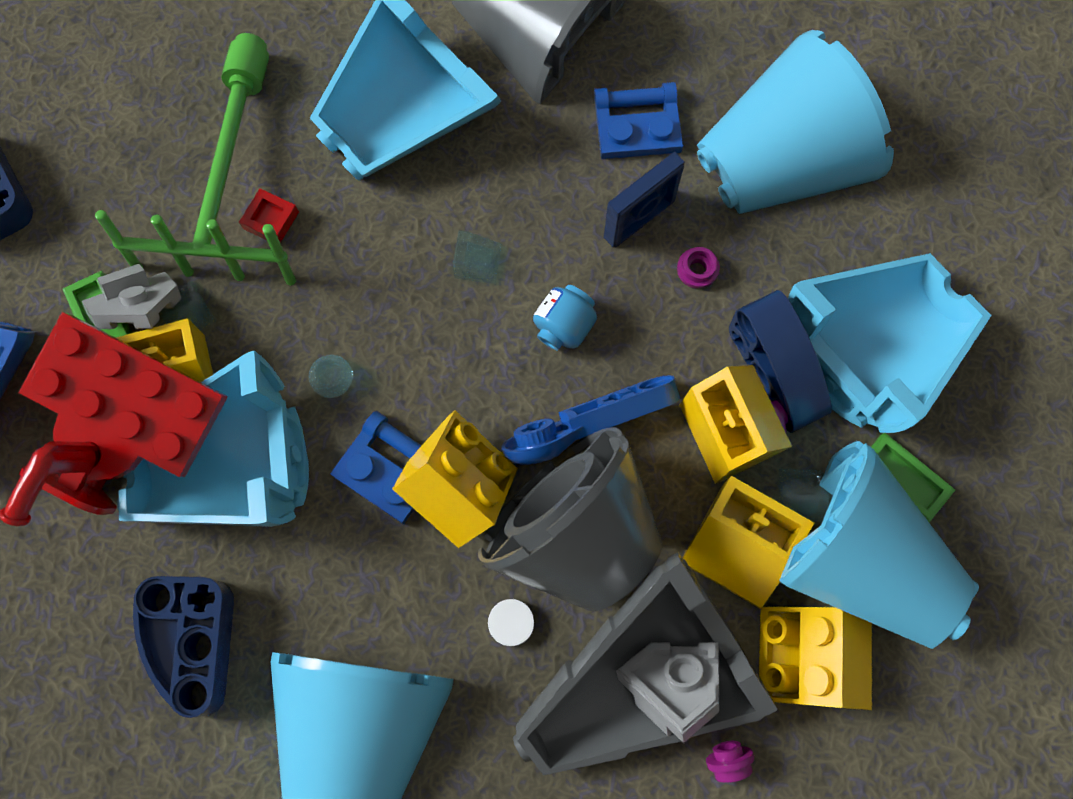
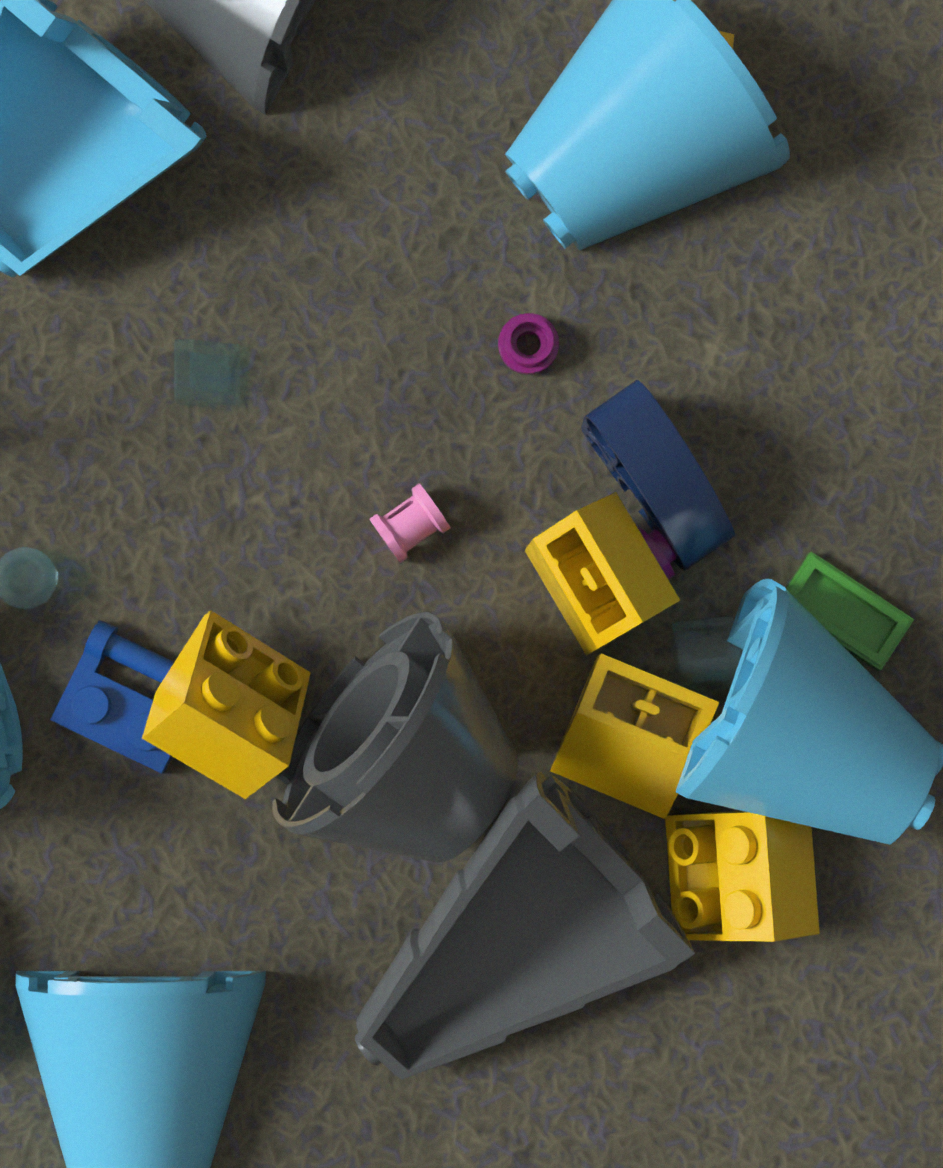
camera: 15 degrees left, 10 degrees up
(511, 622) = (331, 886): white tile -> none
(548, 439) = (345, 630): blue beam -> none
(565, 317) = (346, 450): dark azure head -> none
(602, 373) = (410, 523): none -> bright pink bush
(641, 132) = (417, 143): blue plate -> none
(643, 200) = (435, 262): dark blue tile -> none
(675, 685) = (558, 940): light grey plate -> none
(730, 761) = (643, 1024): magenta plate -> none
(888, 337) = (801, 418): medium azure cone -> none

